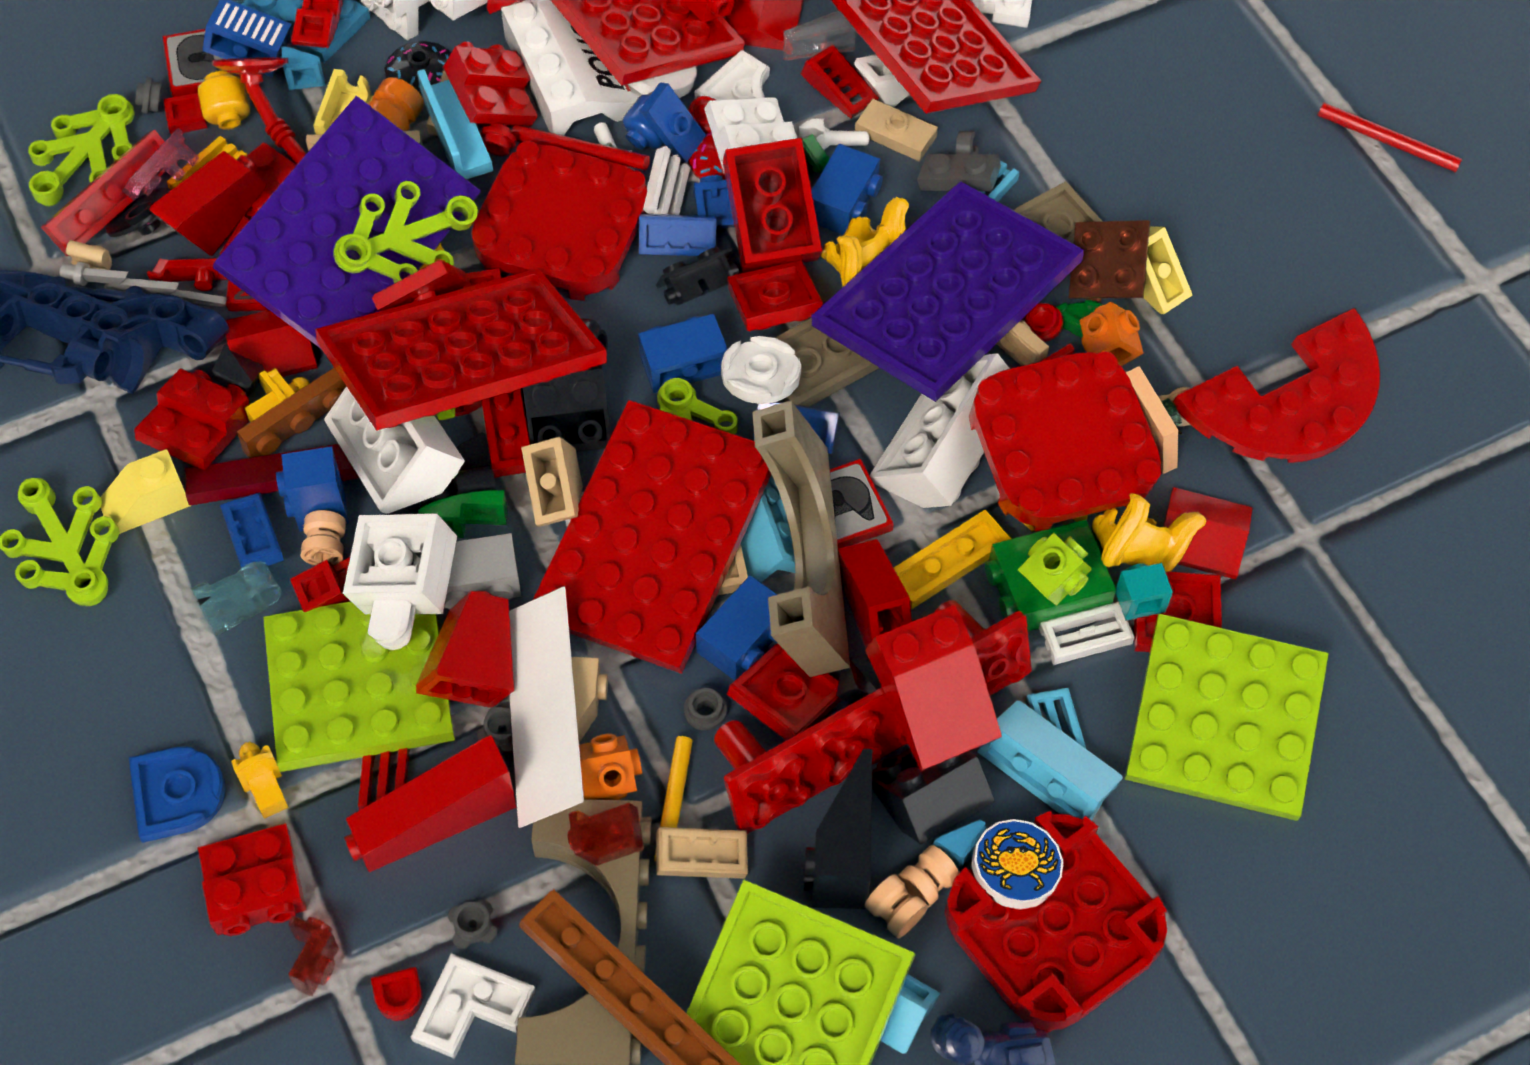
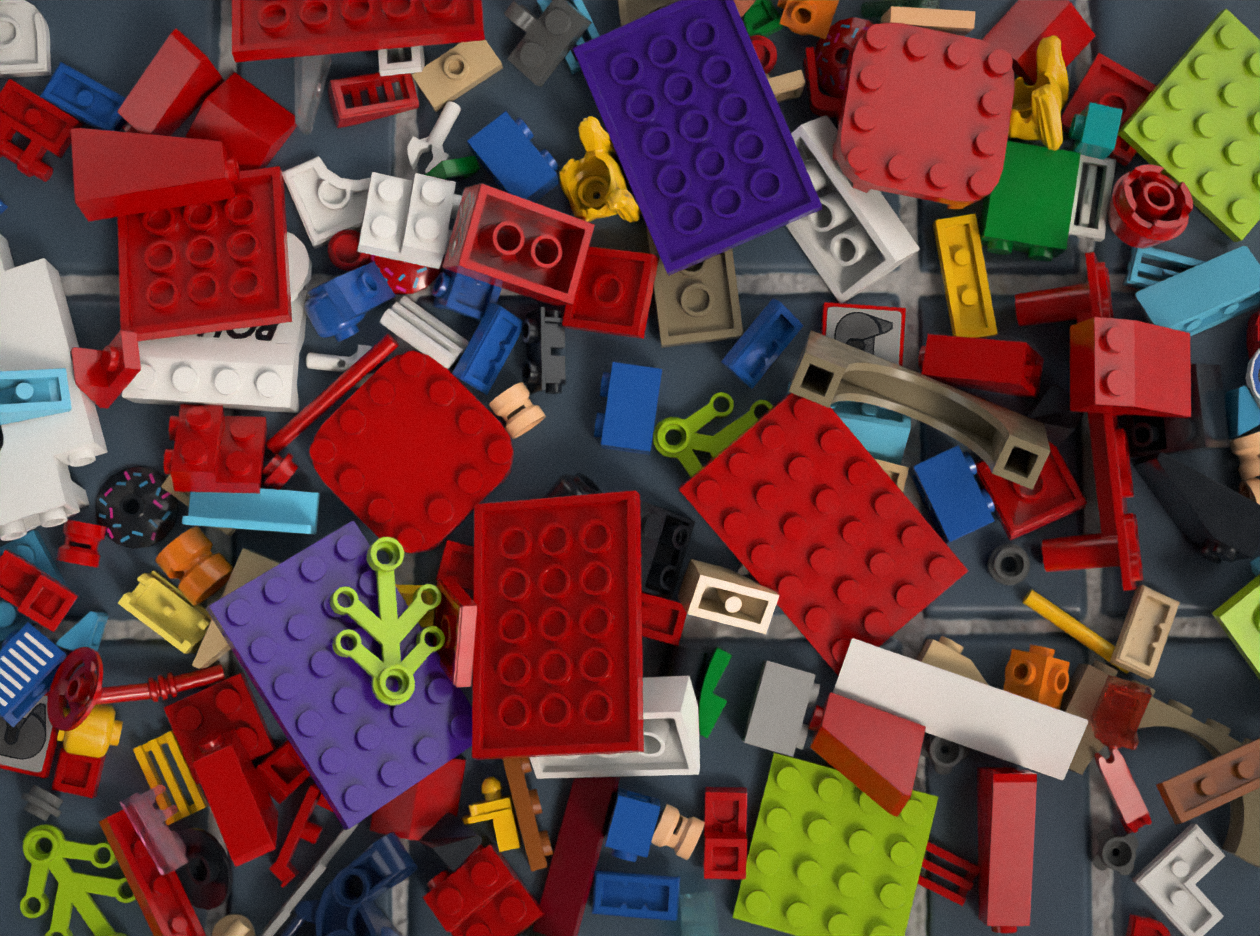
camera: 65 degrees left, 25 degrees up
(381, 38) = (81, 533): none -> red wheel
(385, 582) = (777, 785): white brick -> none
(537, 885) = (1123, 791): none -> piece
(634, 277) = (512, 402): none -> light nougat wheel
(761, 370) = (697, 348): white tile -> none
(1056, 567) = (1055, 198): lime brick -> none
(1103, 669) = (1148, 207): none -> red cone

